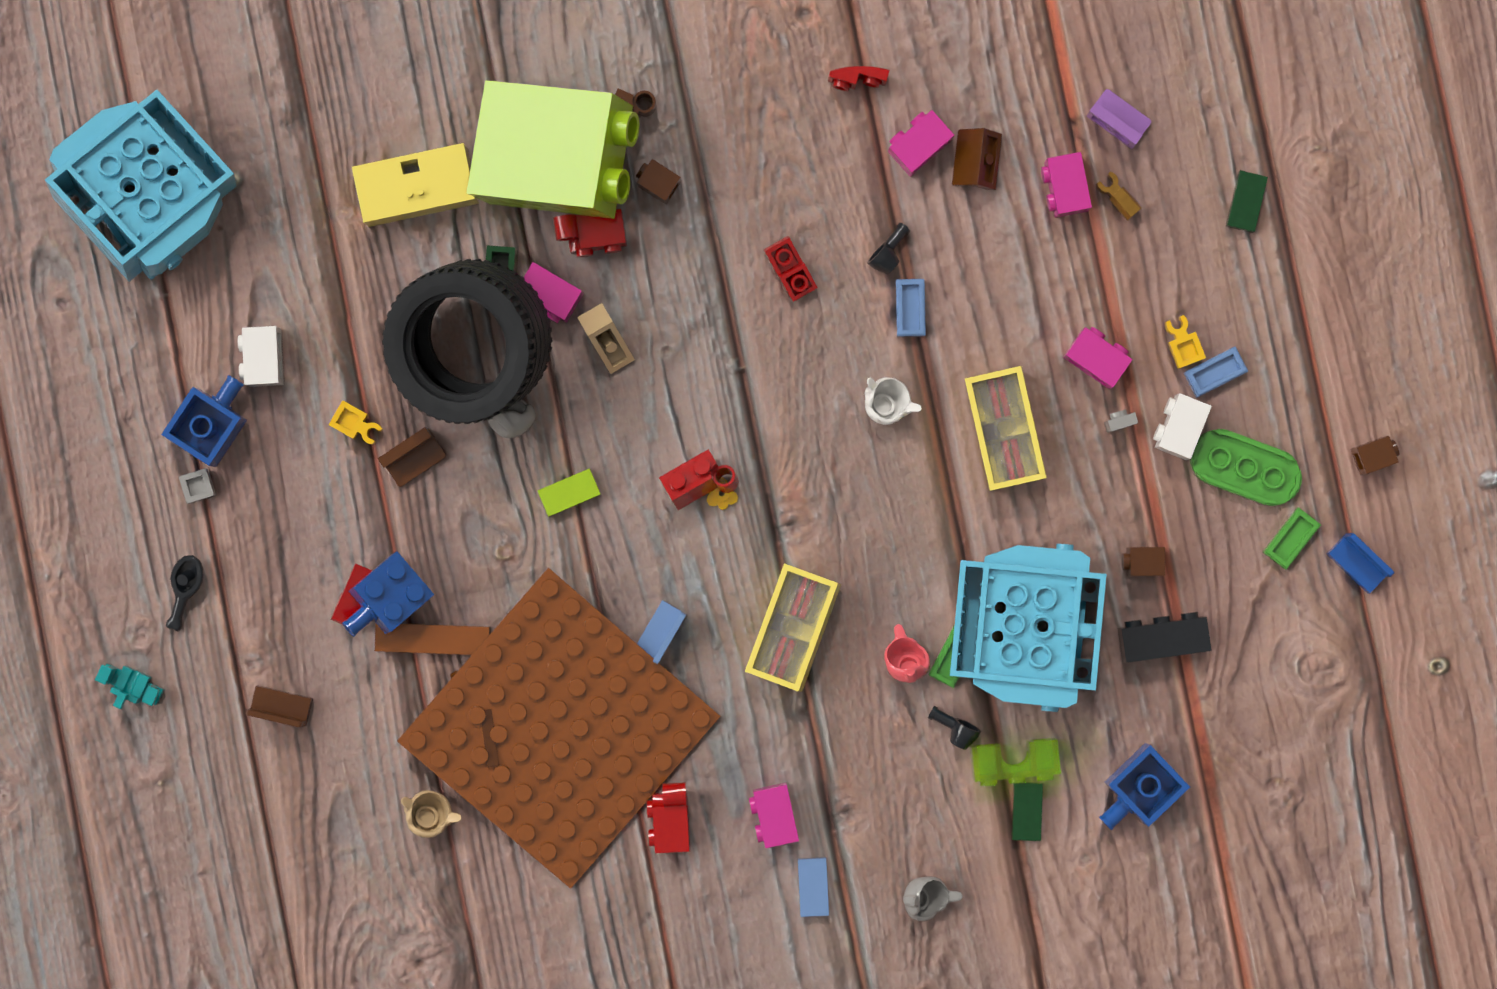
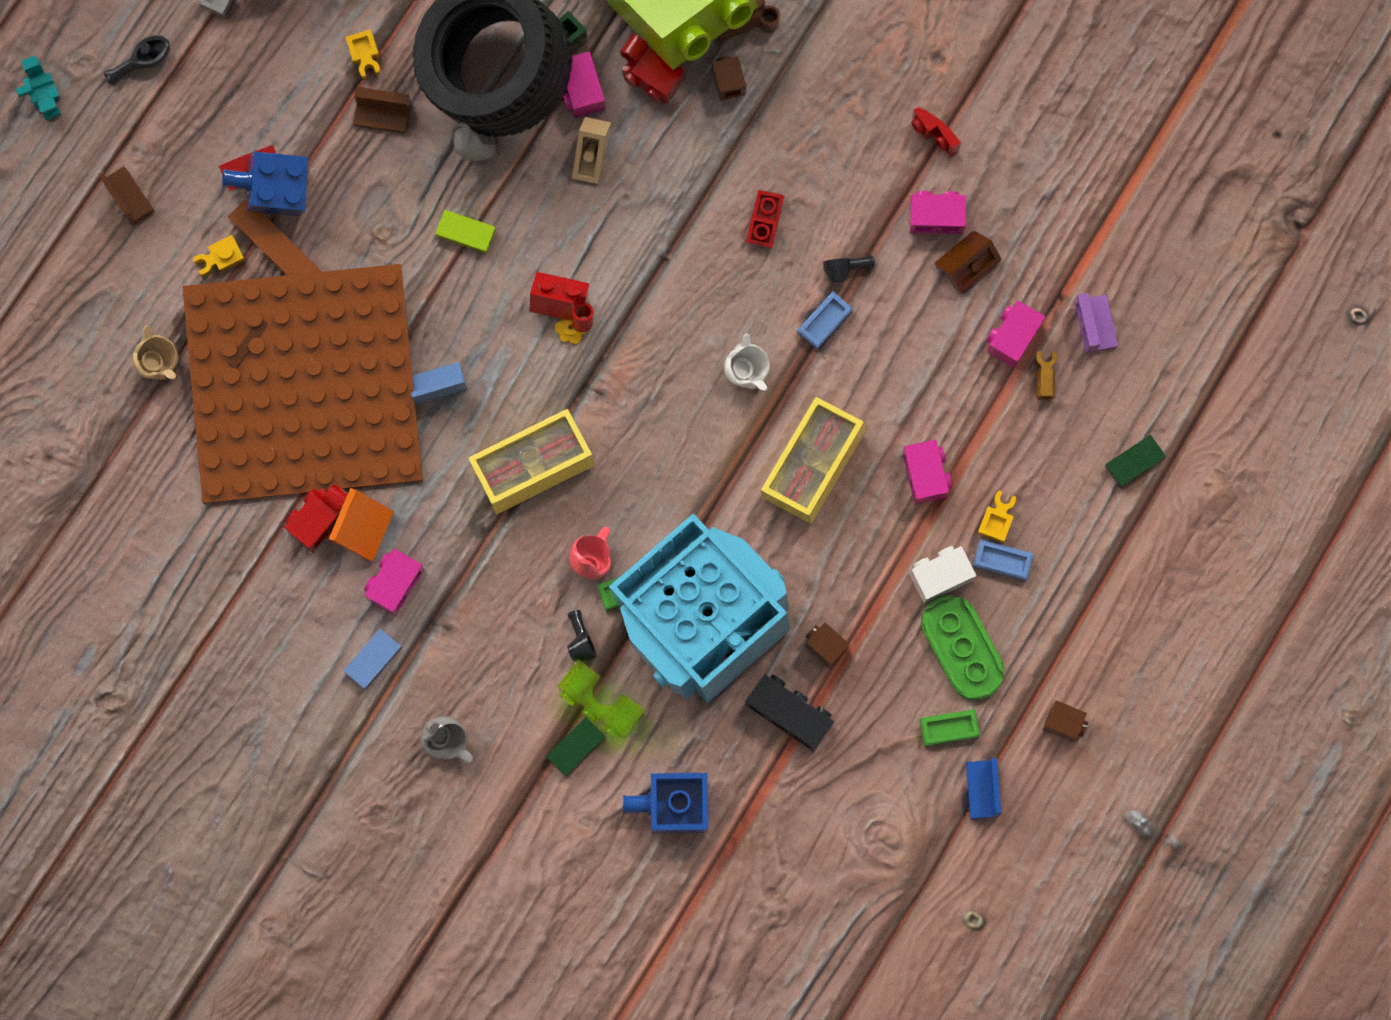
camera: 35 degrees right, 10 degrees down
(400, 683) = (223, 254): none -> yellow plate
(711, 797) = (361, 525): none -> orange tile
(1120, 420) = (901, 530): light grey plate -> none

